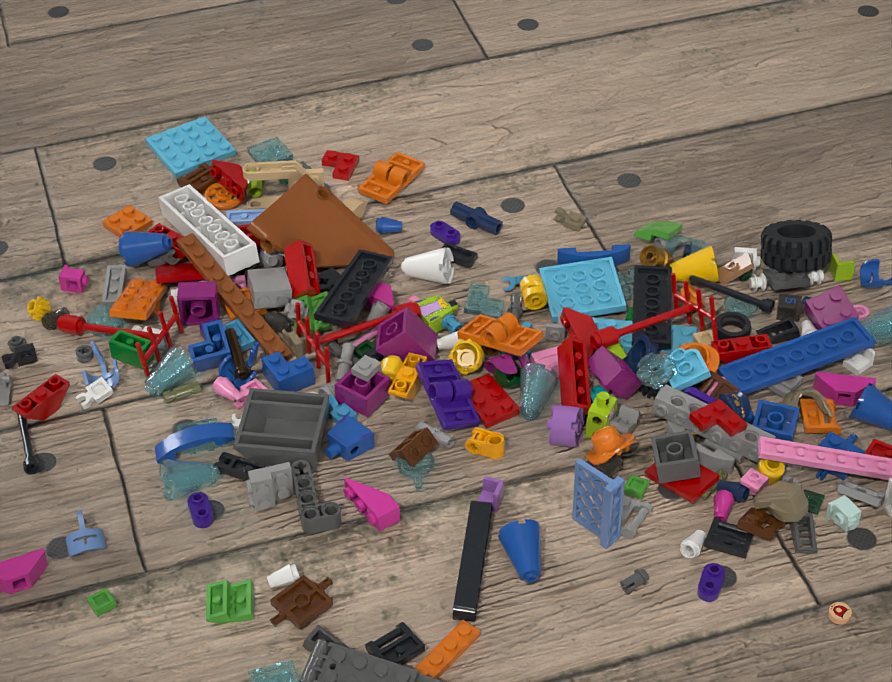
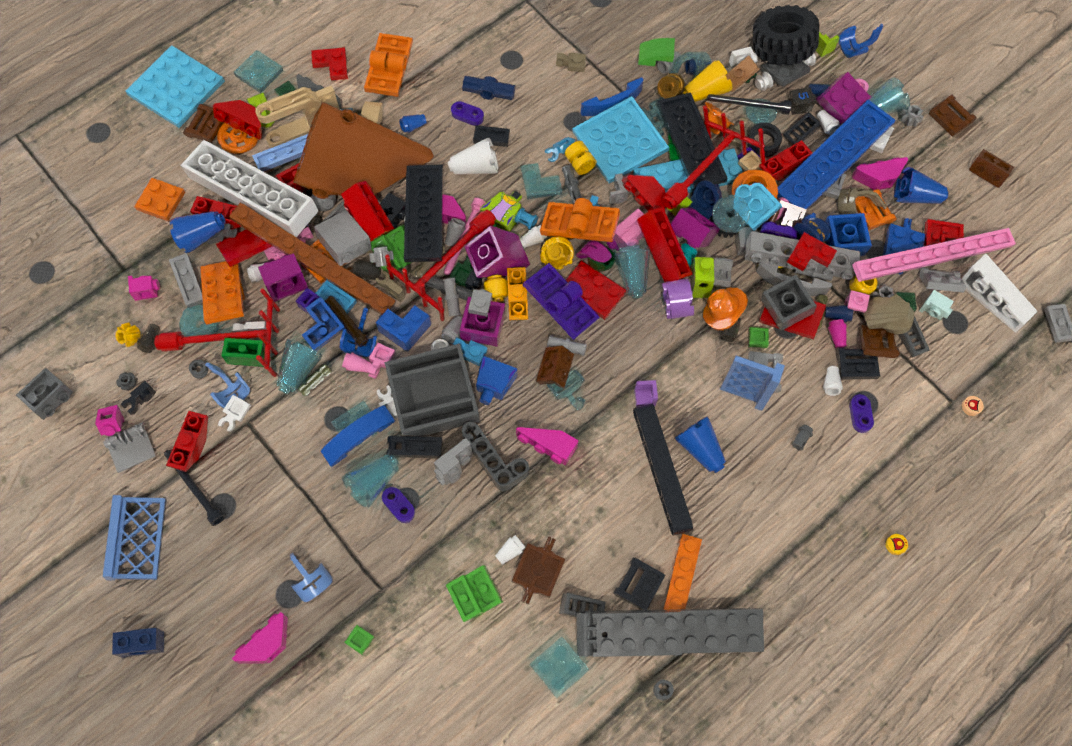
camera: 25 degrees left, 25 degrees up
(487, 442) = (614, 338): light orange piece -> none

